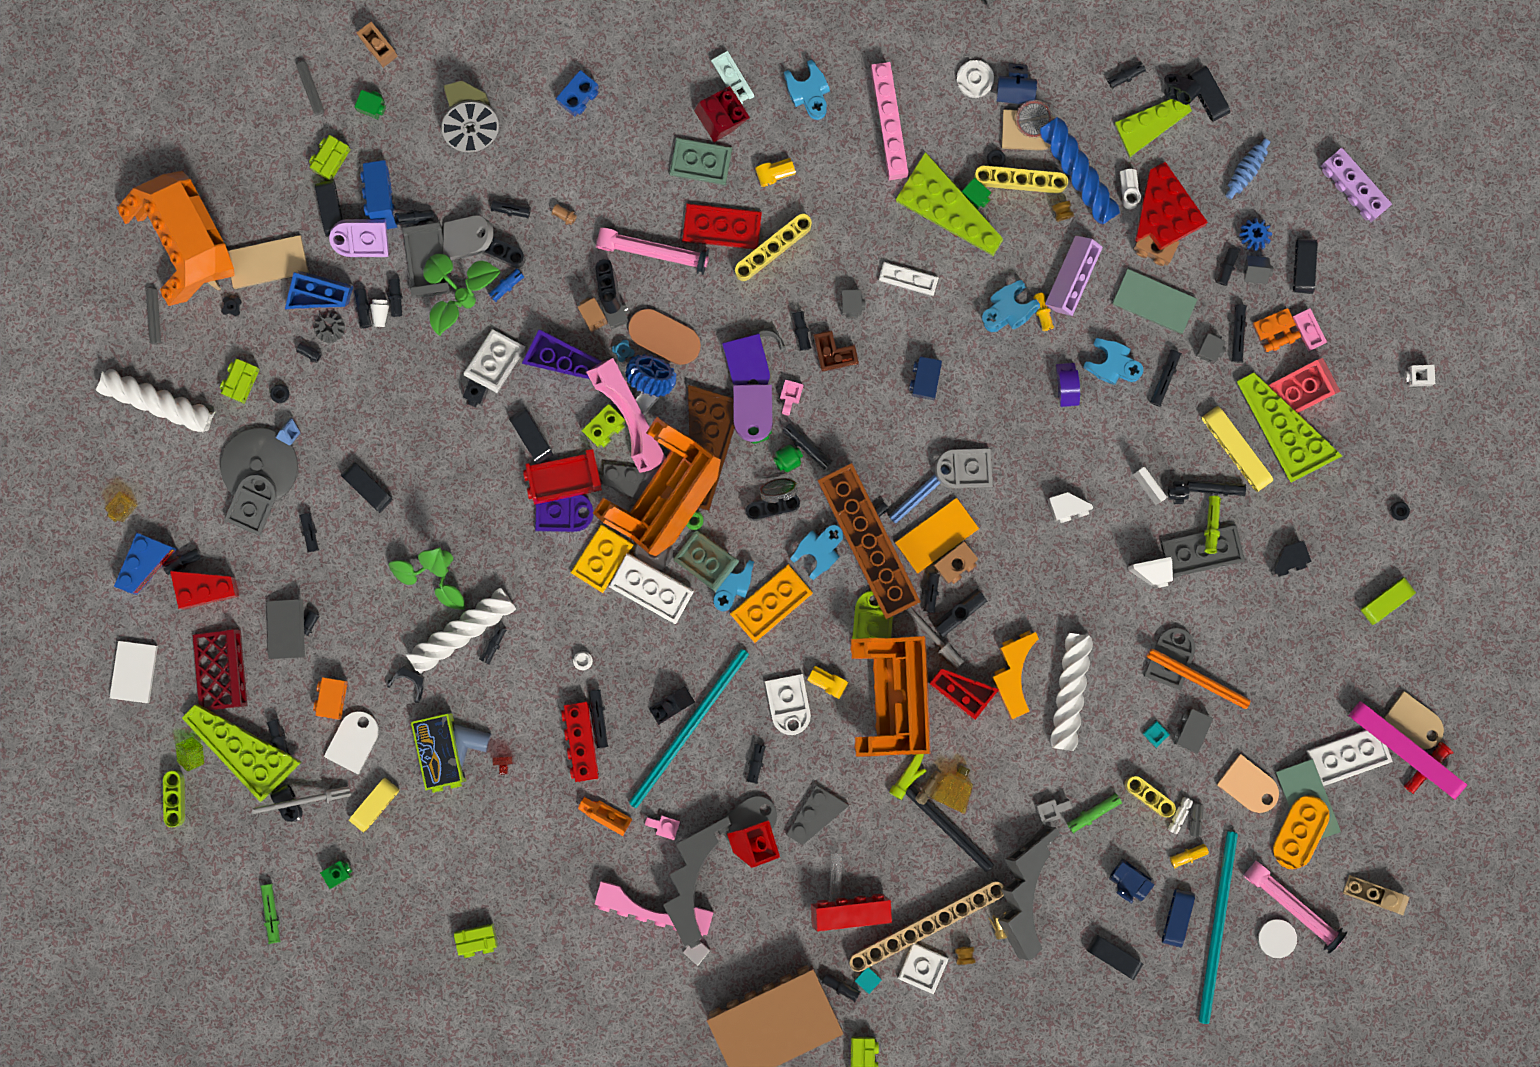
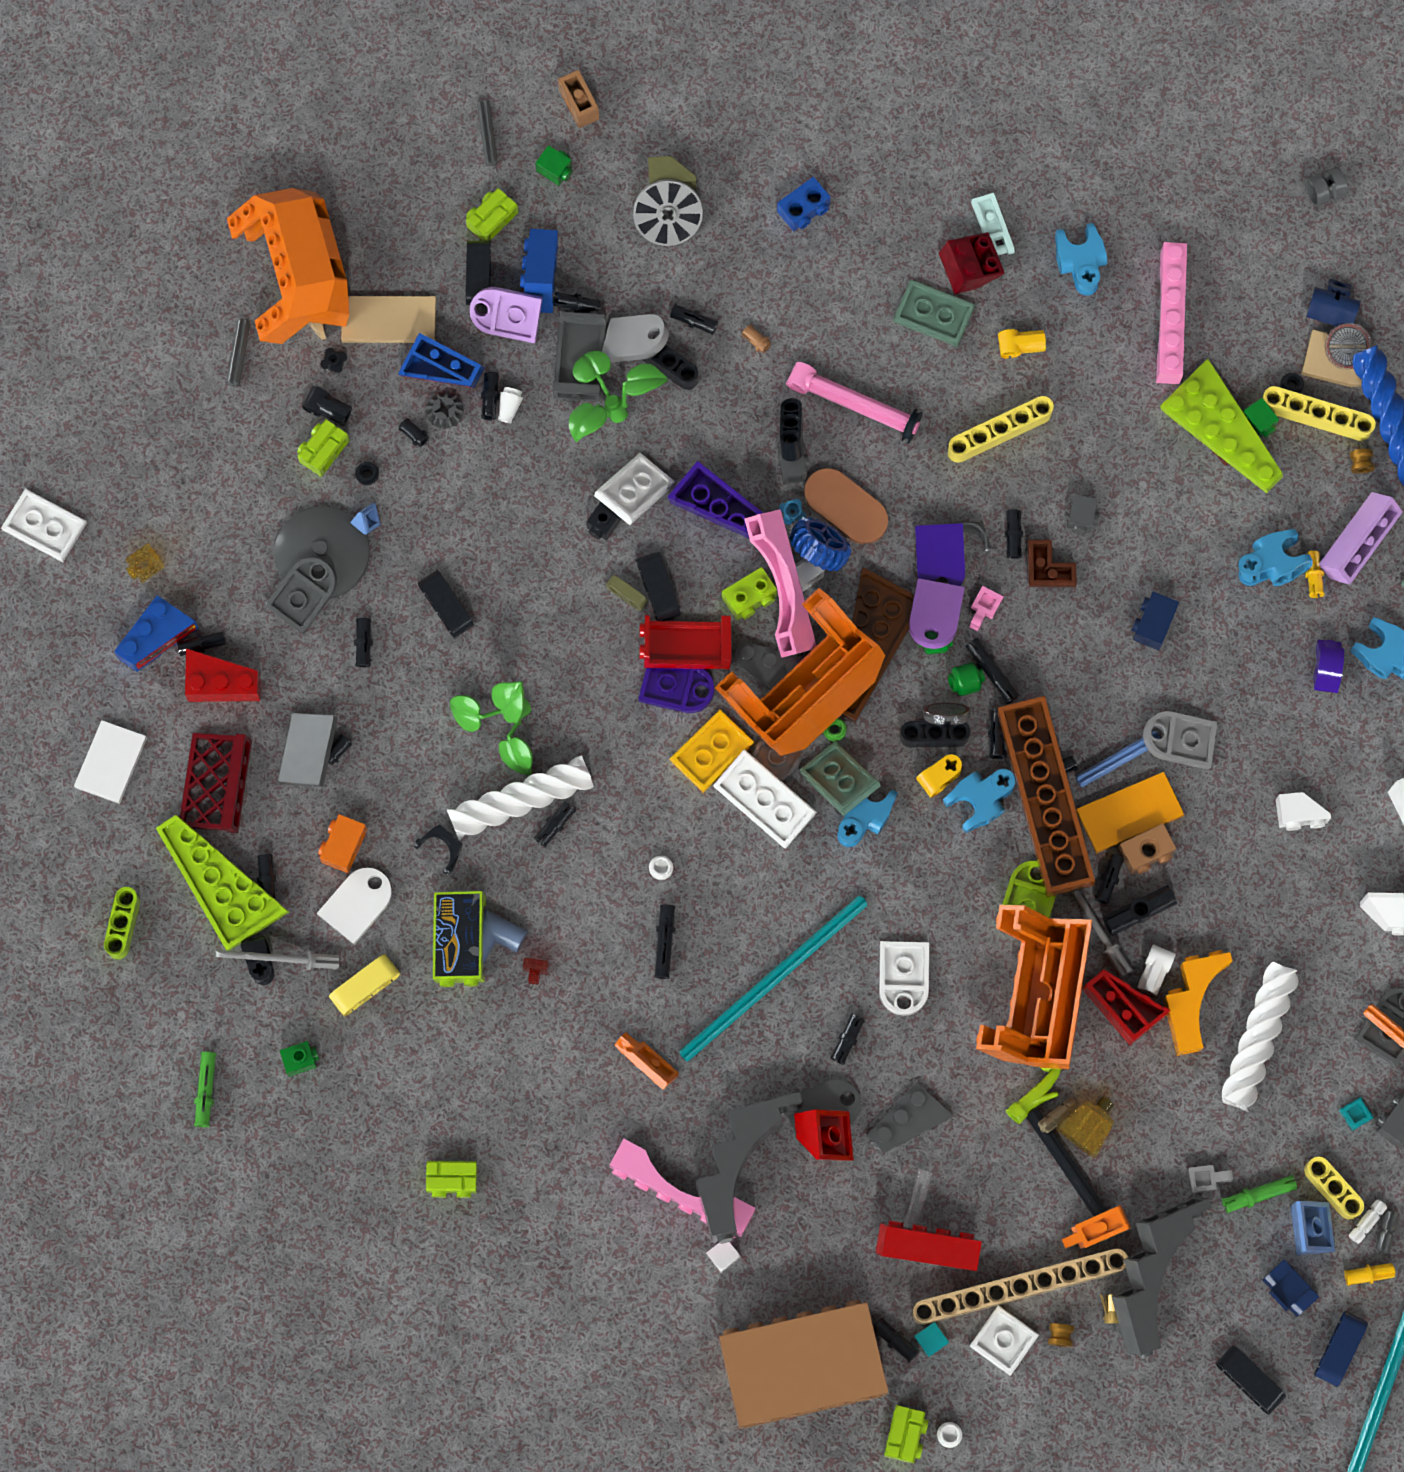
camera: 15 degrees right, 10 degrees down
(33, 492) = (44, 525): none -> white tile
(158, 403) = (221, 453): white piece -> none
(190, 754) = (154, 874): clear neon green panel -> none
(230, 345) = (322, 404): none -> black piece
(395, 297) = (531, 391): black axle -> none
(505, 285) = (668, 405): blue pin -> none
(507, 446) = (626, 593): none -> olive beam
(581, 742) = (637, 964): red brick -> none
(592, 314) = (765, 458): medium nougat brick -> none
(665, 827) = (718, 1092): bright pink plate -> none
(671, 705) = (759, 944): black slope -> none
(722, 226) = (943, 393): red tile -> none
(771, 603) = (908, 849): light orange tile -> none
(781, 542) = (936, 777): none -> yellow piece
(822, 503) = (996, 737): none -> black pin
(830, 683) = (961, 961): yellow piece -> none
(896, 1049) = (949, 1434): none -> white plate
(908, 279) = (1157, 501): white tile -> none
(970, 81) = (1282, 293): white tile -> none
(977, 869) = (1098, 1228): none -> orange hinge
(981, 653) = (1157, 965): none -> white piece
(1139, 830) = (1312, 1227): none -> medium blue slope

